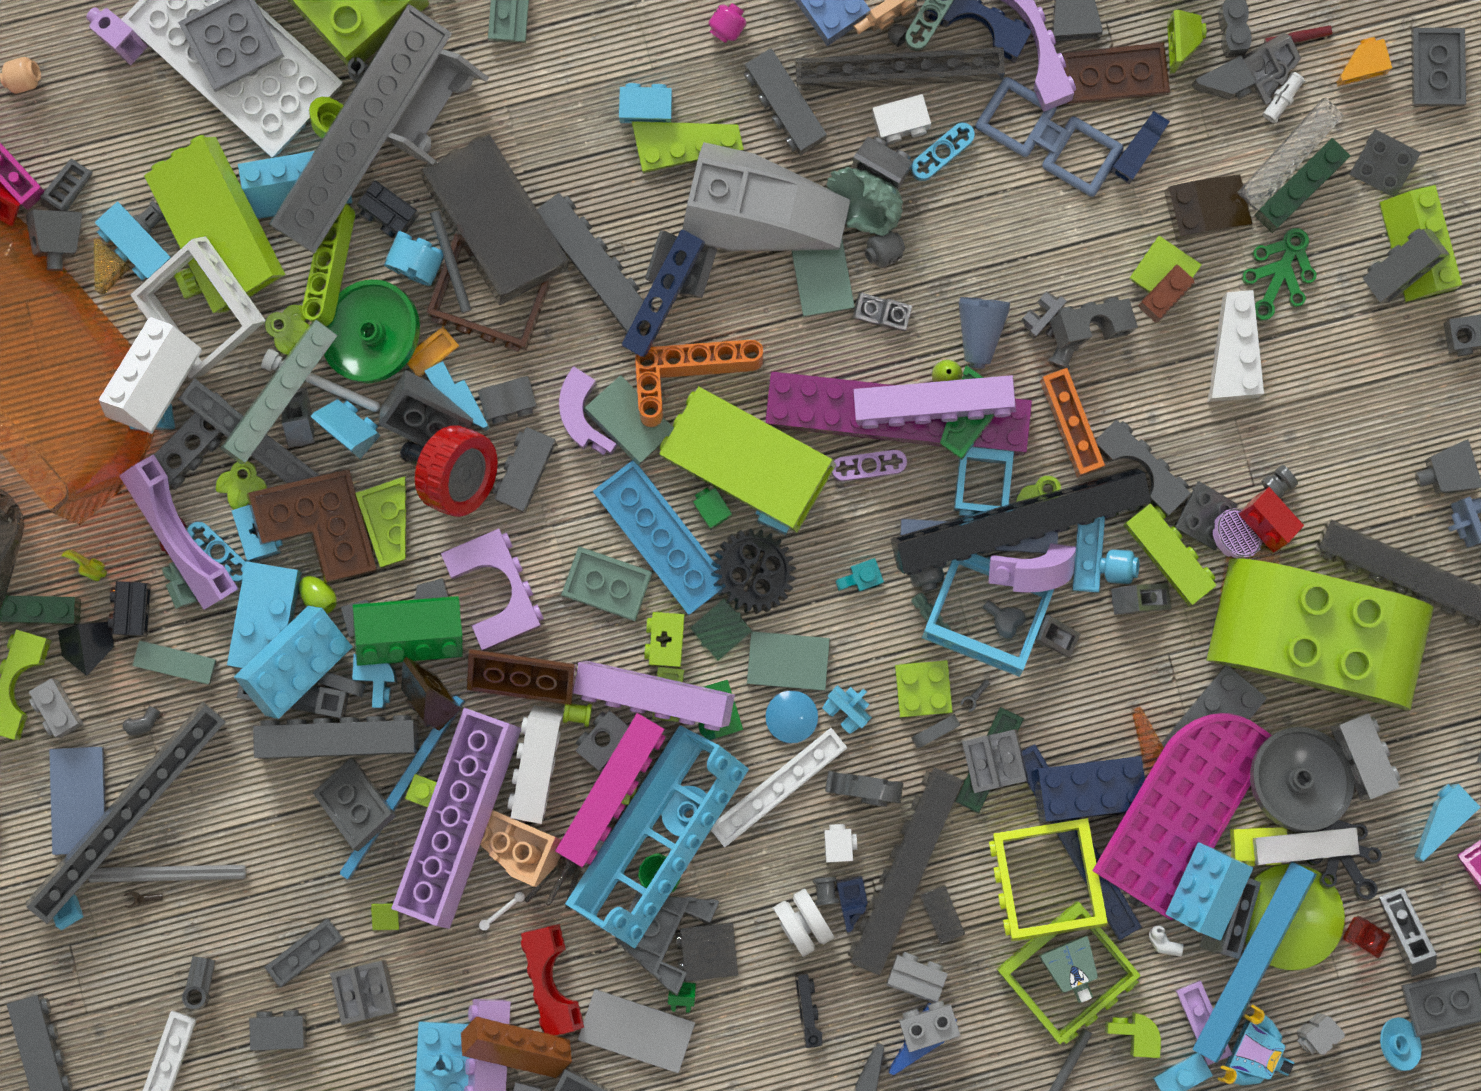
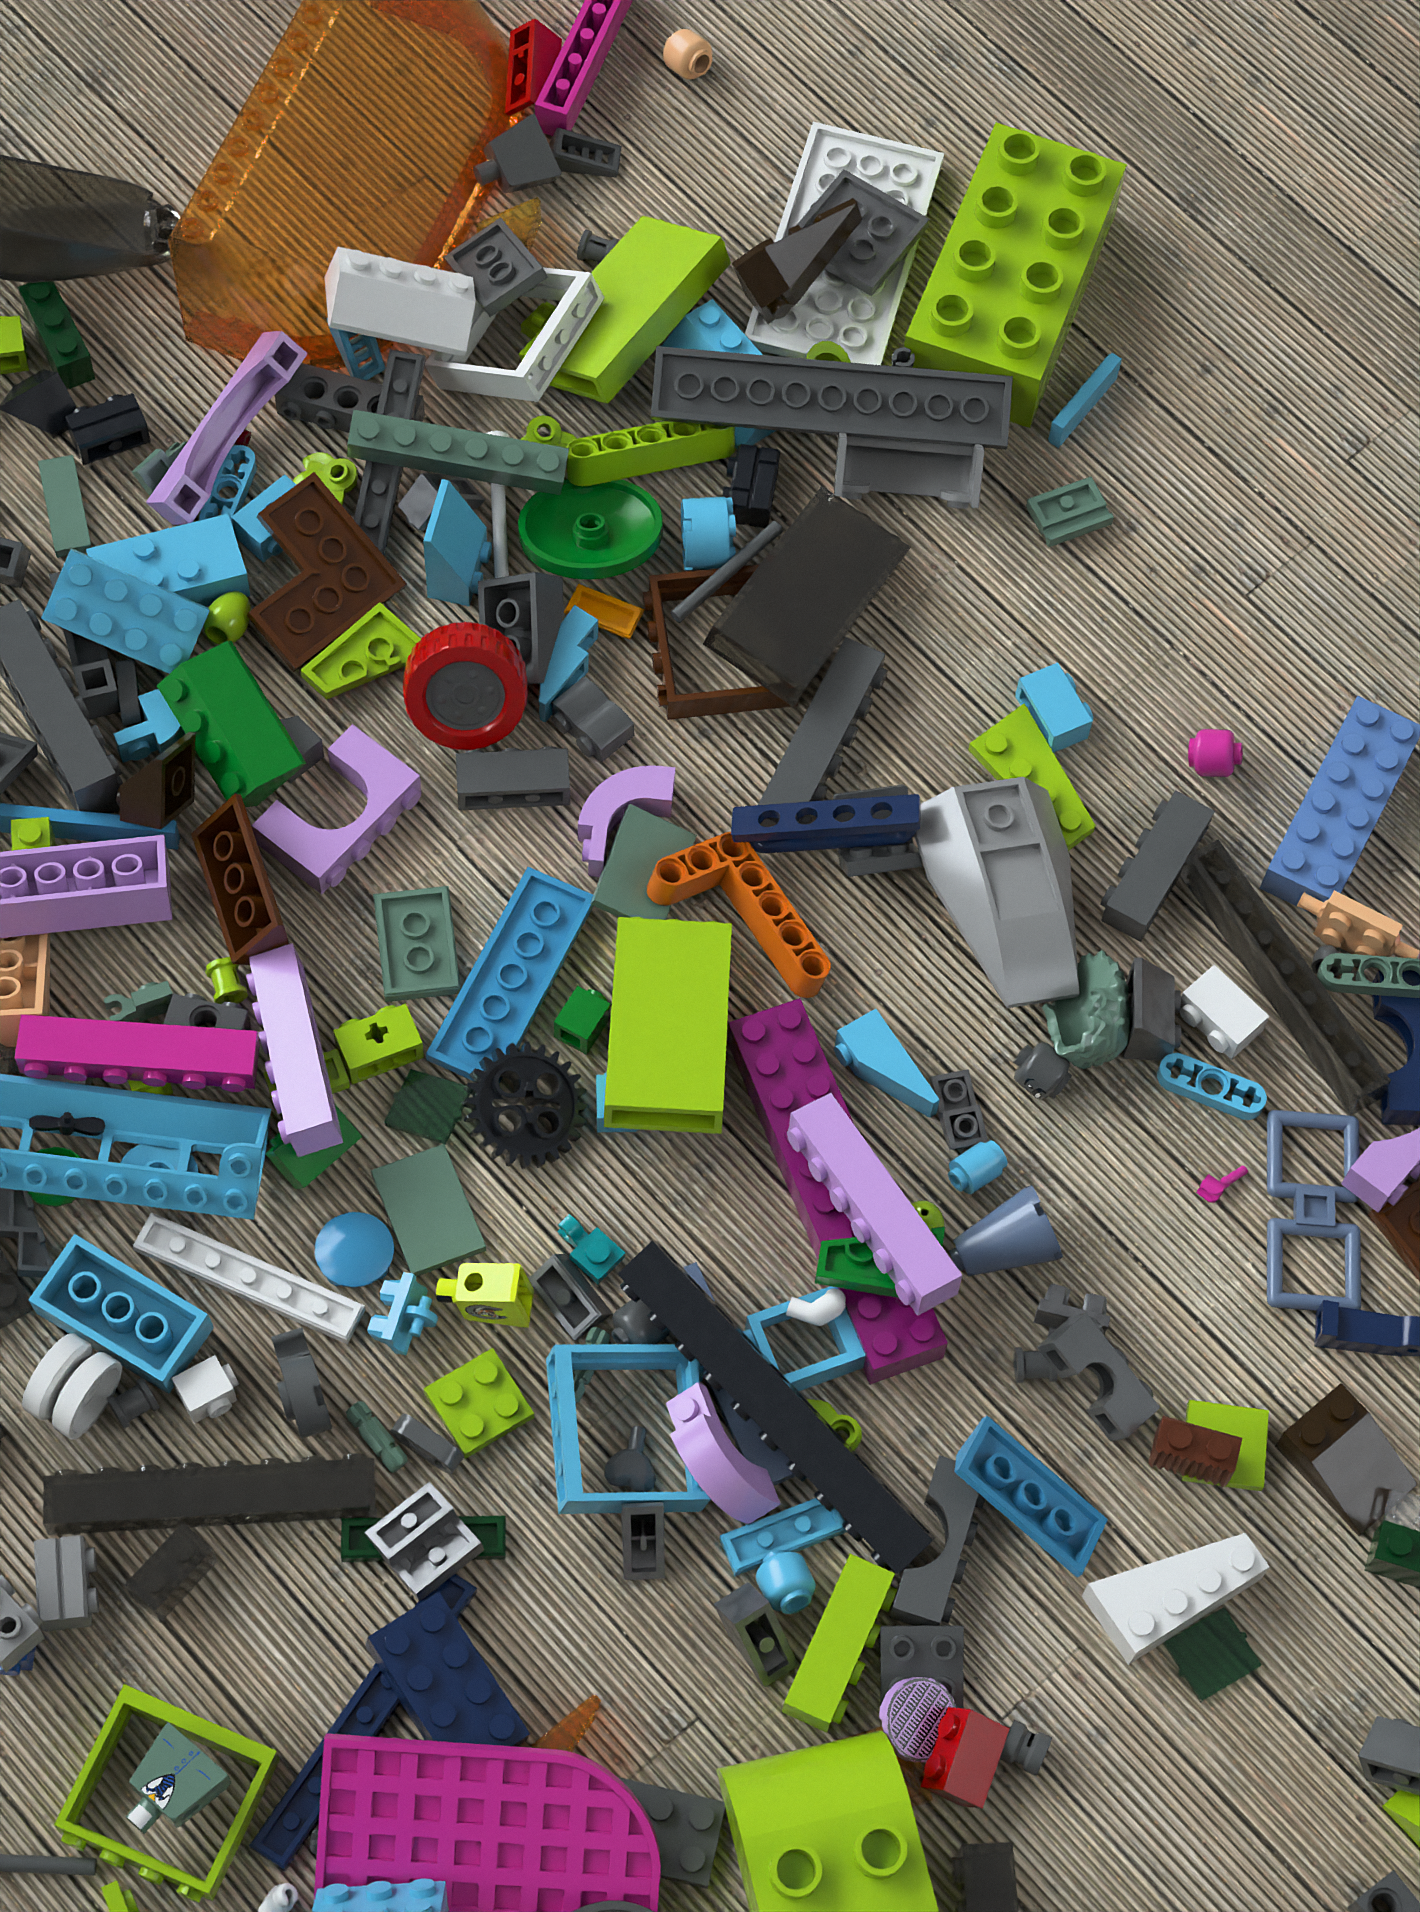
camera: 60 degrees right, 20 degrees down
(91, 568) = (136, 356): lime plate -> none
(116, 34) = (792, 110): lavender torso -> none
(131, 241) = (562, 226): medium azure brick -> none
(143, 294) = (499, 266): none -> dark grey plate
(247, 112) = (782, 271): none -> dark brown wedge
(536, 764) = (131, 957): white wedge -> none
(567, 766) = (145, 1003): none -> sand green plate
(631, 853) = (68, 1124): none -> black piece
(770, 873) = (121, 1313): none -> medium azure brick
(822, 281) = (959, 1018): sand green tile -> none
(825, 342) = (883, 1062): none -> medium azure slope
(852, 900) = (139, 1446): dark blue slope -> none
(870, 644) = (490, 1293): none -> neon yellow torso
(883, 603) = (569, 1295): none -> dark grey slope
(889, 470) = (770, 1205): lavender beam -> none
(915, 758) = (376, 1436): none -> sand green axle
(925, 321) = (977, 1167): none -> medium azure brick
(975, 695) = (501, 1475): dark grey hand -> none
(977, 464) = (821, 1310): none -> white arm
(1006, 898) = (309, 1755): neon yellow window -> none
(1007, 188) = (1212, 1189): none -> dark pink hand
(1072, 422) = (947, 1416): orange brick -> none
(1143, 402) = (1030, 1495): none -> dark azure slope
(1279, 347) = (1212, 1654): none -> clear green piece
(1282, 270) = (1319, 1604): green plant -> none

